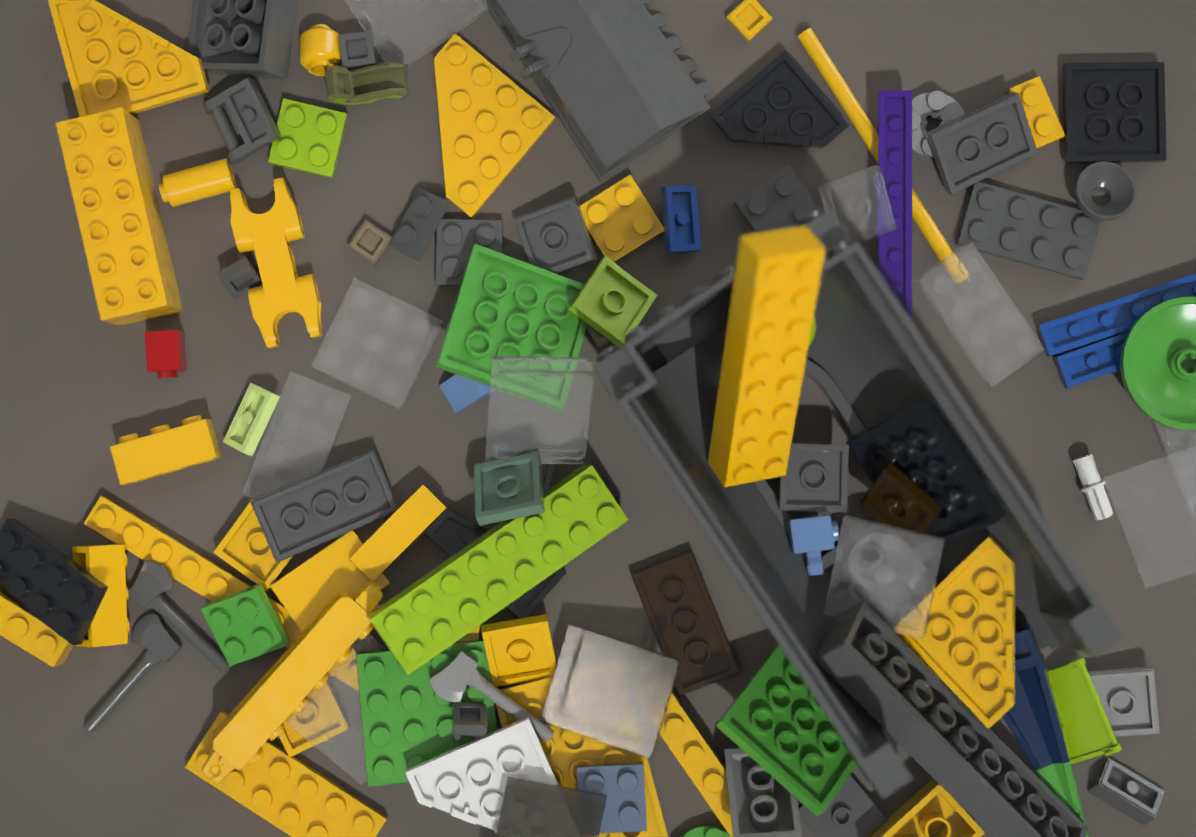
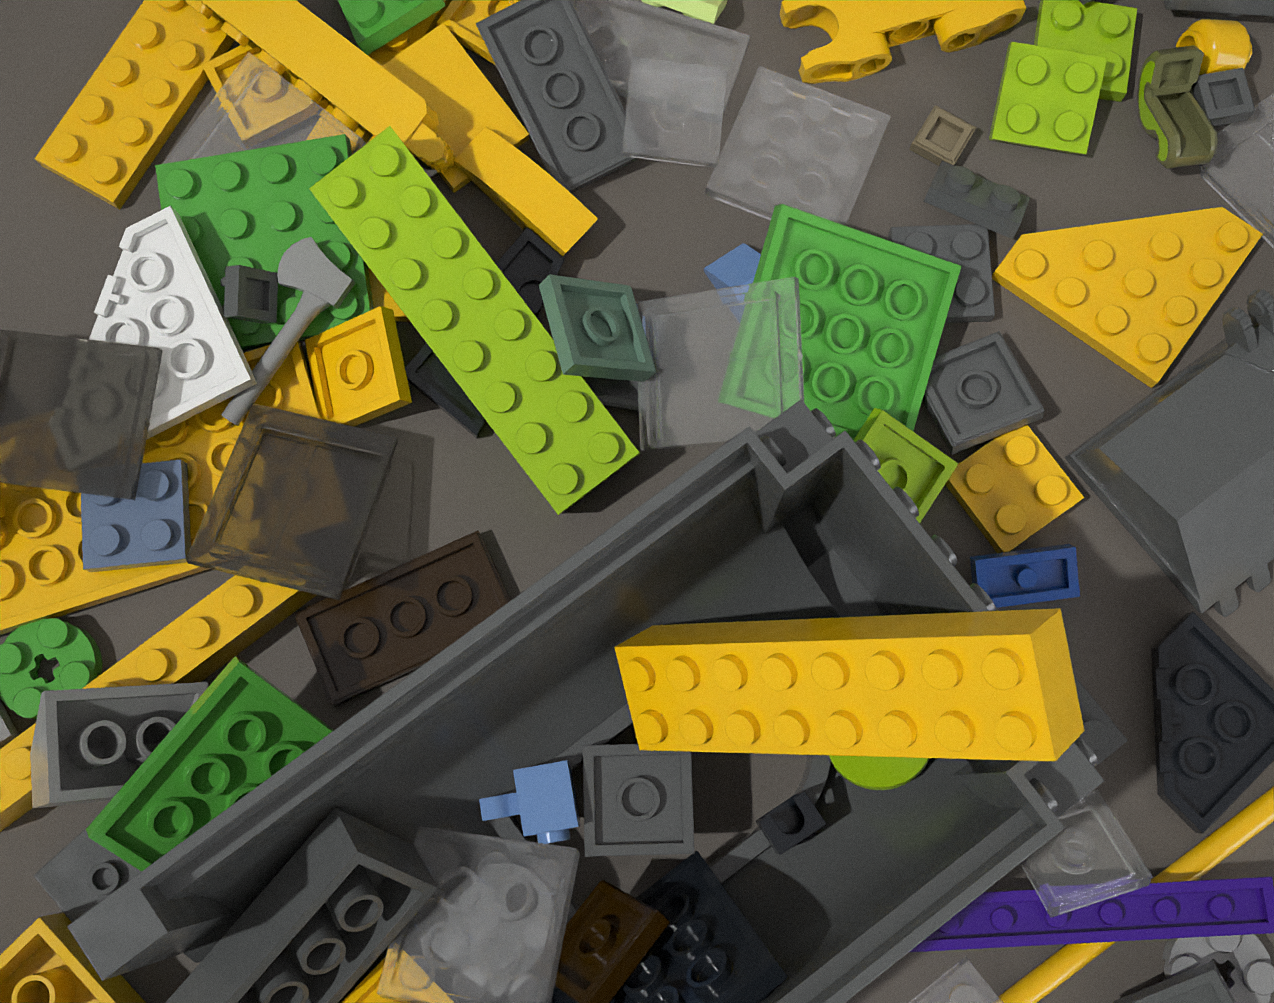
camera: 90 degrees right, 10 degrees down
(349, 169) = (1047, 98): none -> lime plate
(349, 428) = (674, 112): none -> clear plate
(833, 385) = (790, 822): none -> black piece

